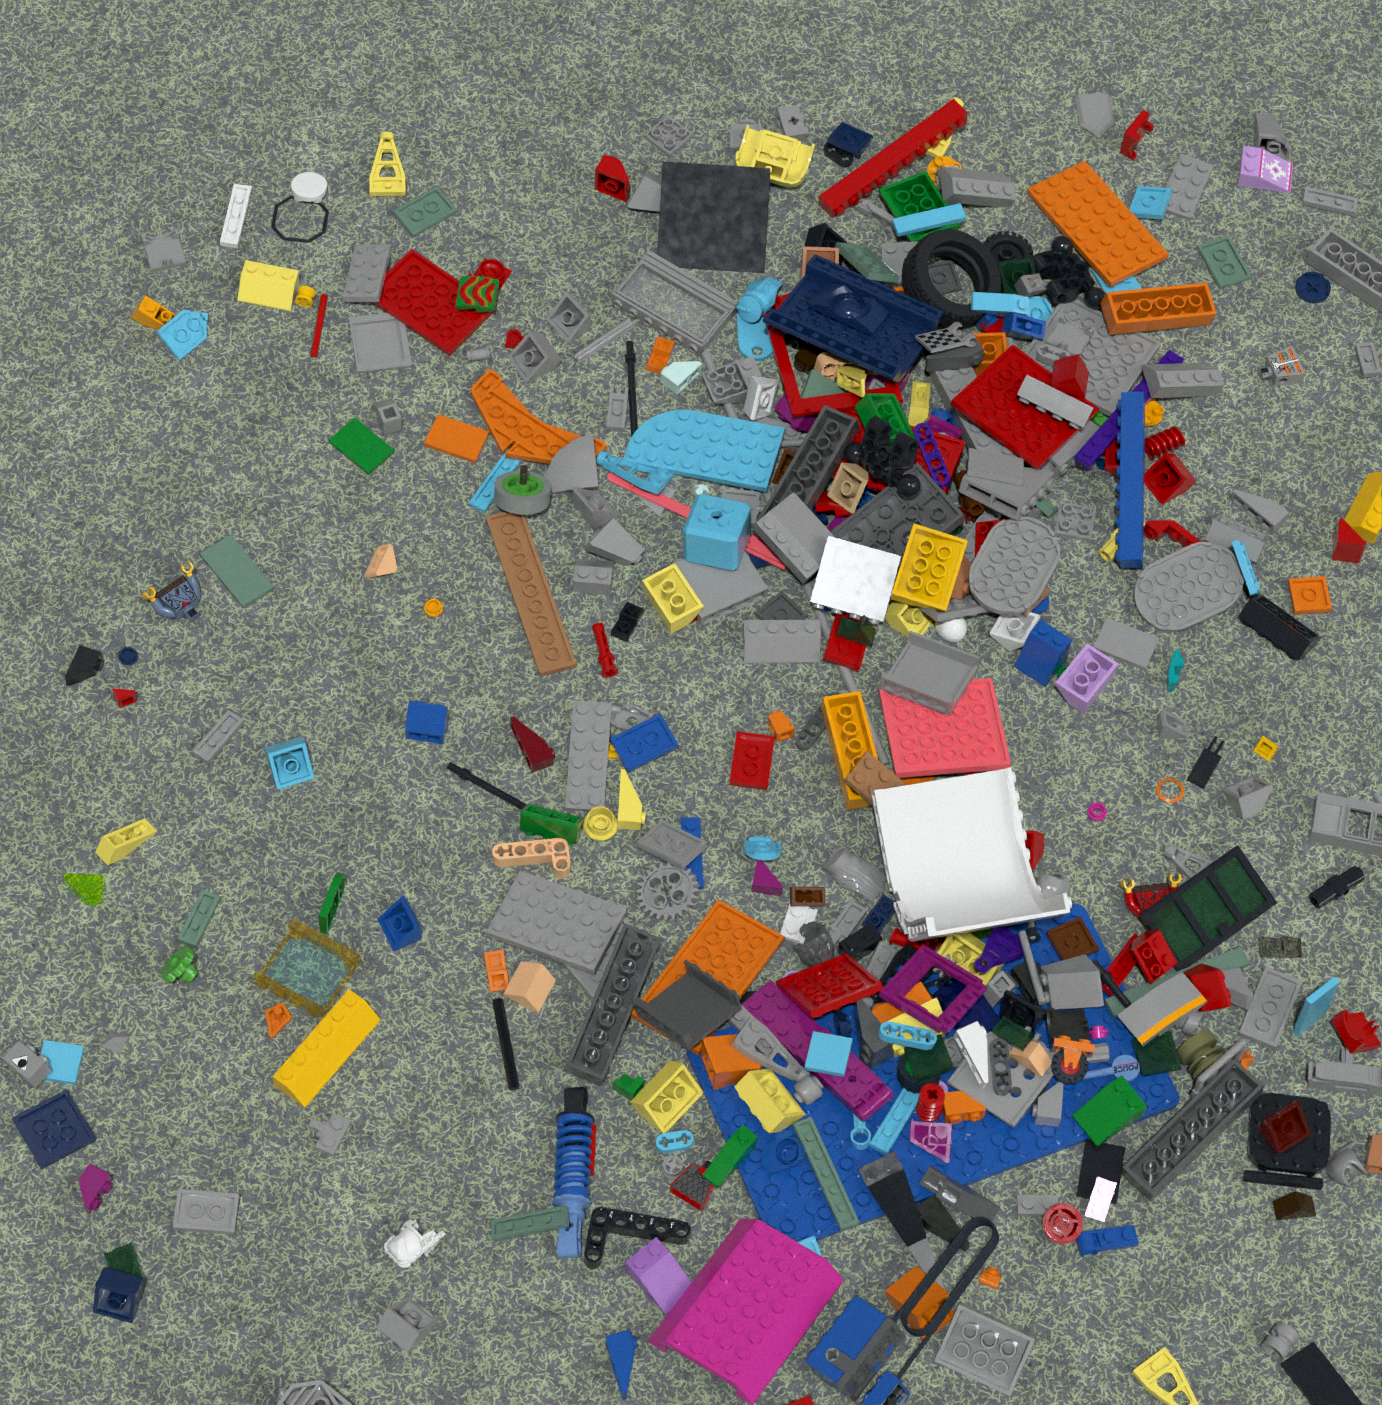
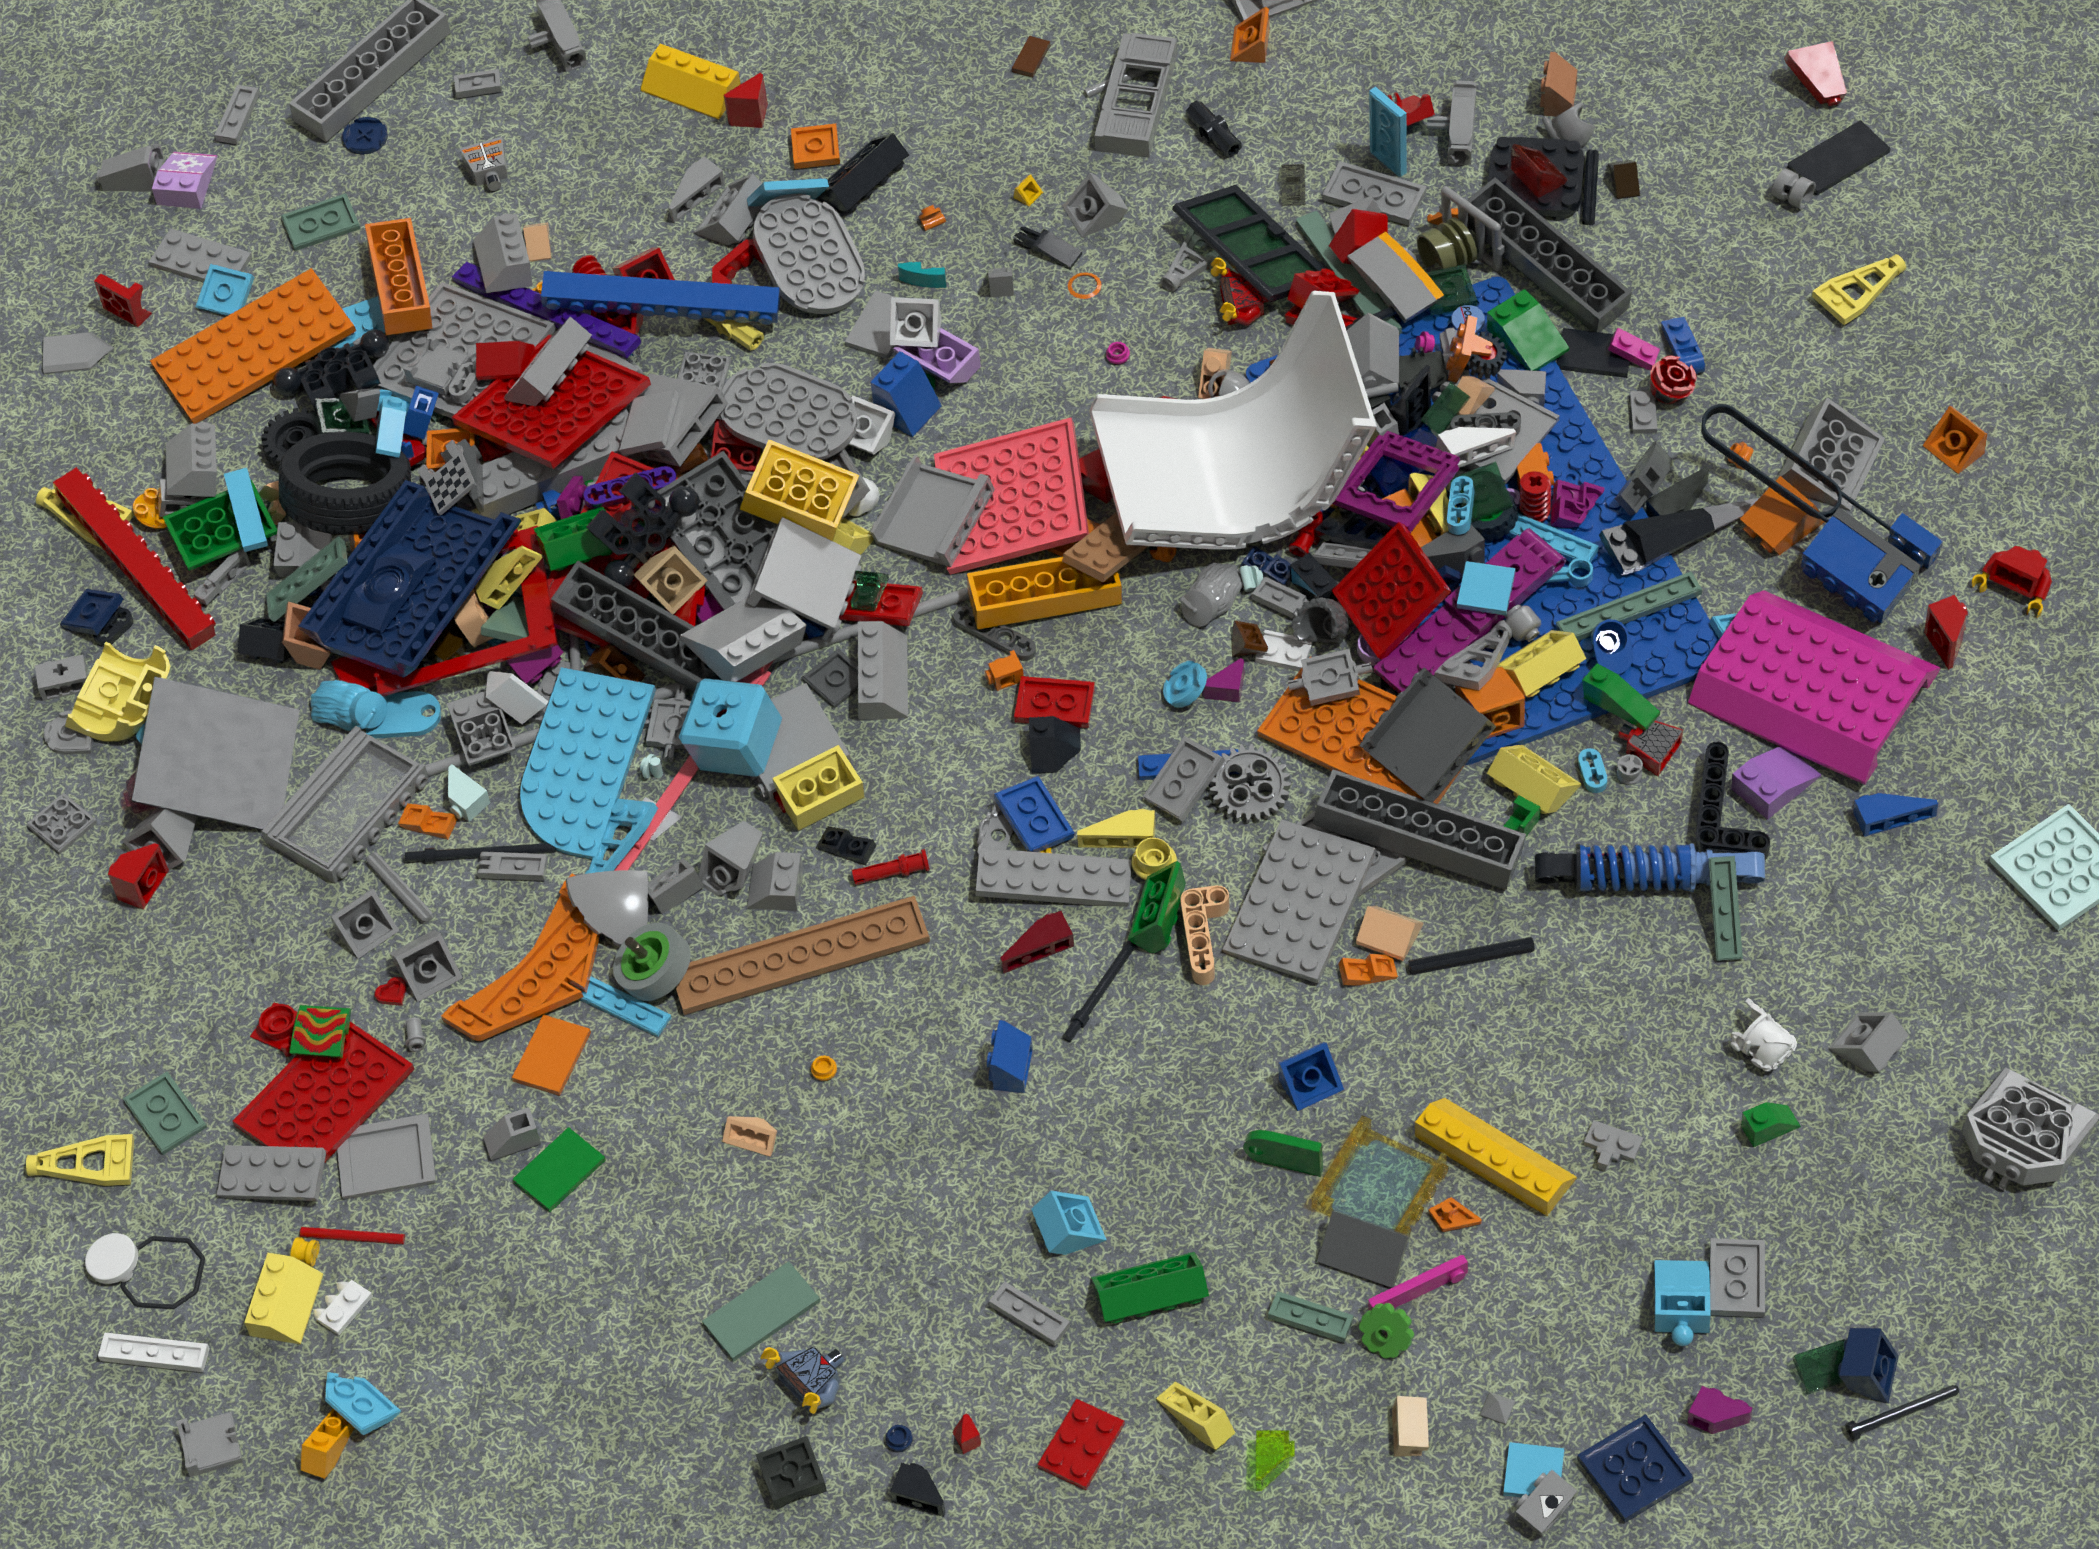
camera: 80 degrees left, 5 degrees down
(71, 1283) = (1855, 1429): none -> black bar
(102, 978) = (1410, 1426): none -> tan hinge
(105, 587) = (791, 1472): none -> pearl dark grey piece
(112, 769) = (1081, 1444): none -> red plate
(197, 1168) = (1682, 1299): none -> medium azure slope
(226, 1014) = (1450, 1271): none -> dark pink plate
(232, 813) = (1150, 1287): none -> green slope
(249, 953) = (1363, 1248): none -> dark grey tile
(263, 323) = (344, 1307): none -> white plate
(338, 1244) = (1768, 1122): none -> green slope
(711, 757) = (1052, 743): none -> black slope
(758, 946) = (1330, 677): none -> light grey plate
(867, 899) = (1251, 577): none -> light aqua plate
(1080, 877) = (1213, 361): none -> light nougat slope
(1104, 654) = (915, 322): none -> white slope
(1207, 405) = (537, 241): none -> light nougat slope
(1236, 678) = (931, 217): none -> orange plate

